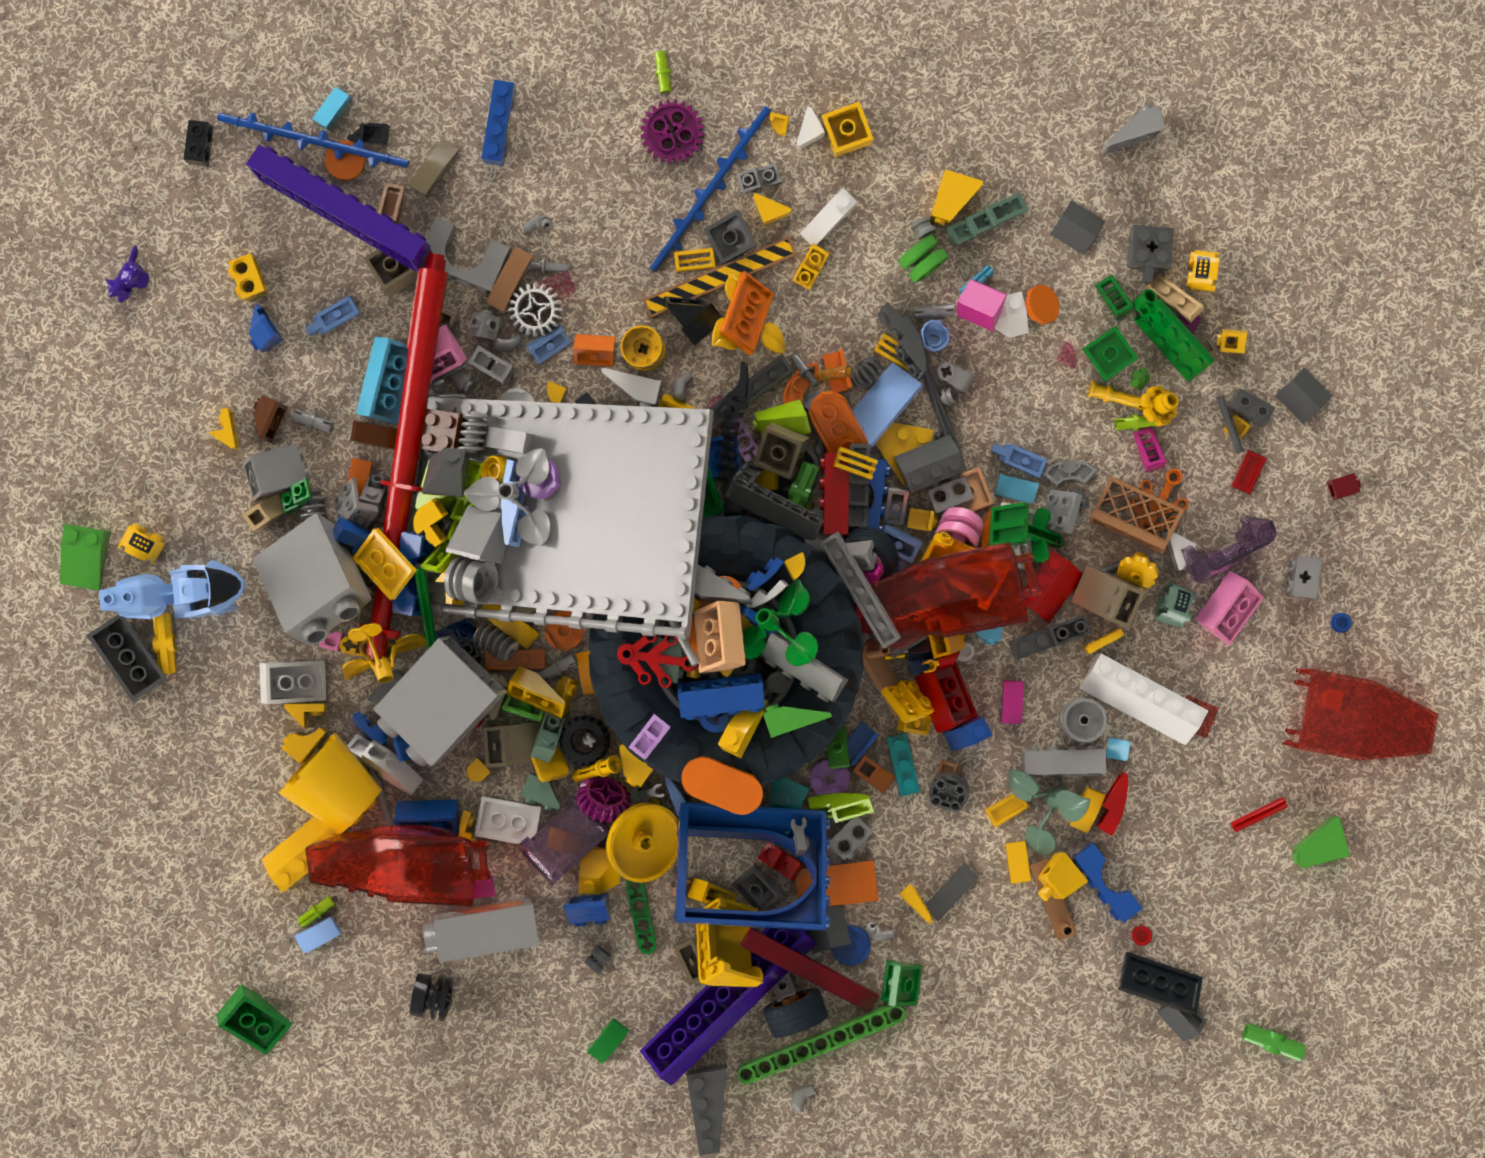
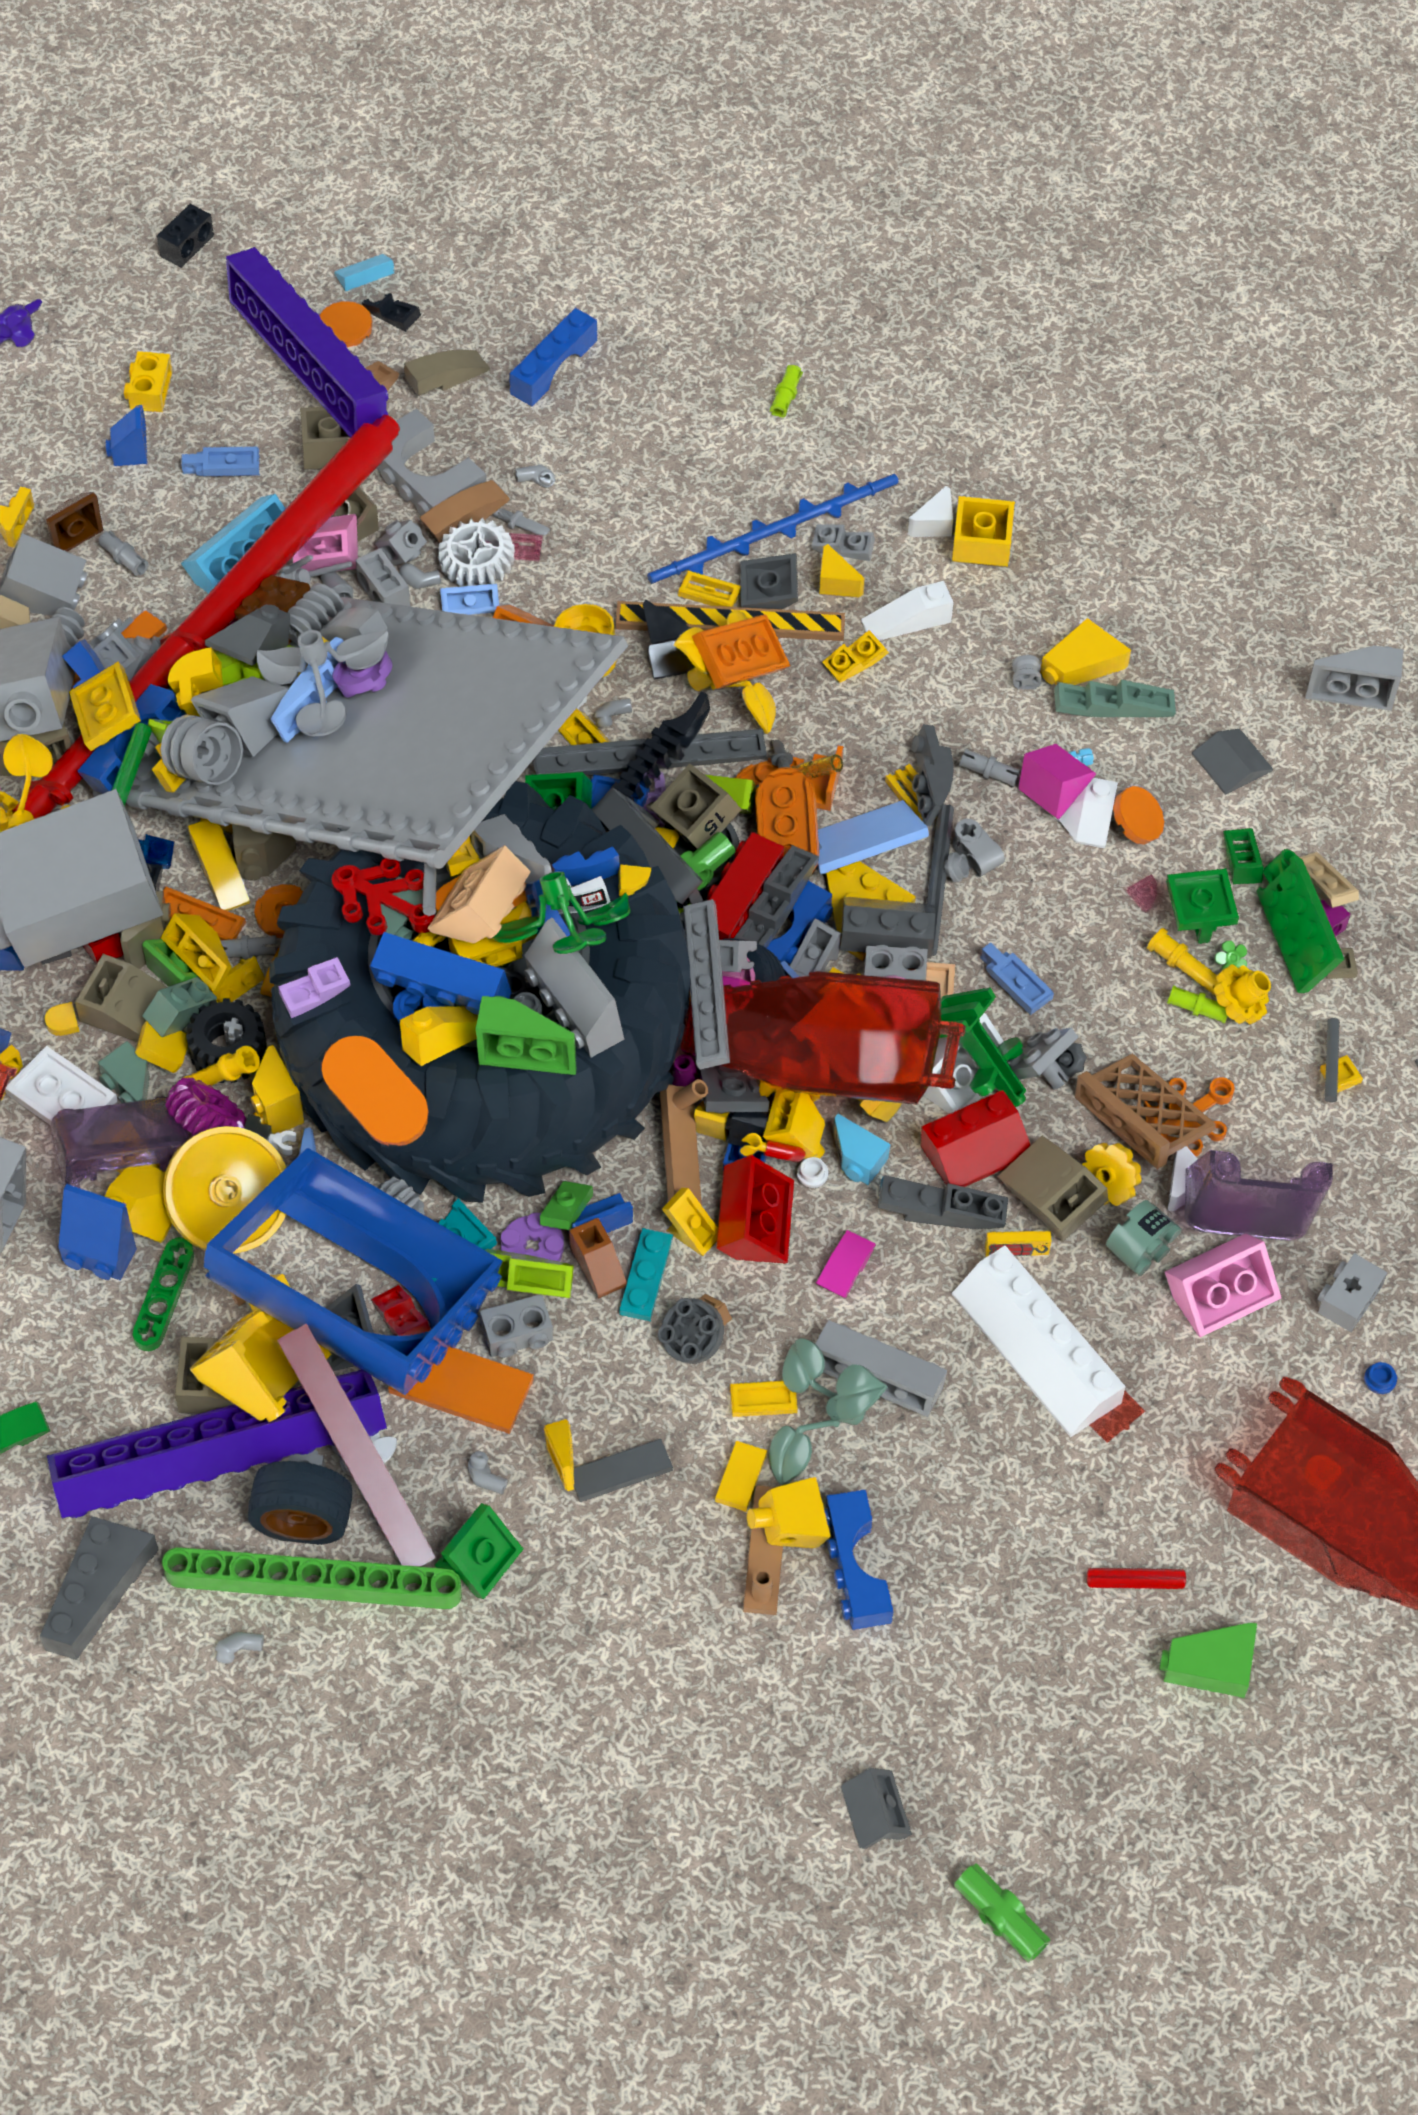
camera: 25 degrees right, 30 degrees down
(296, 497) = (50, 607): green slope -> none
(321, 140) = (330, 290): blue plant -> none
(373, 435) = (180, 584): reddish brown slope -> none
(495, 641) = (186, 874): light grey piece -> none
(598, 959) = (68, 1318): dark grey wheel -> none
(656, 138) = (783, 453): magenta gear -> none
(779, 123) = (902, 499): yellow tile -> none
(800, 840) = (445, 1275): light grey plate -> none
(834, 936) = (414, 1430): dark grey slope -> none
(857, 951) = (438, 1482): blue tile -> none
(866, 372) = (860, 788): dark grey gear -> none
(871, 468) = (789, 855): yellow tile -> none
(907, 701) = (697, 1177): yellow slope -> none
(923, 259) = (1005, 696): bright green wheel -> none
(934, 344) = (974, 783): light blue hair -> none
(968, 733) = (762, 1263): blue slope -> none
(1016, 489) = (1003, 1013): medium azure slope -> none
(1069, 470) = (1091, 1027): light grey tile -> none
(1070, 719) = (935, 1323): light grey wheel -> none
(1096, 801) = (880, 1449): yellow slope -> none
(1114, 804) = (922, 1460): red slope -> none
(1117, 749) = (967, 1394): medium azure slope -> none
(1140, 256) = (1318, 816): dark grey hinge -> none
(1141, 935) = (873, 1663): red tile -> none
(1160, 463) = (1203, 1064): dark pink slope -> none
(1160, 983) = (866, 1735): black tile -> none
(1204, 270) = (1379, 865): yellow brick -> none
(1237, 346) = (1378, 955): yellow brick -> none
(1249, 472) = (1332, 1134): red tile -> none
(1250, 407) = (1371, 1051): dark grey brick -> none

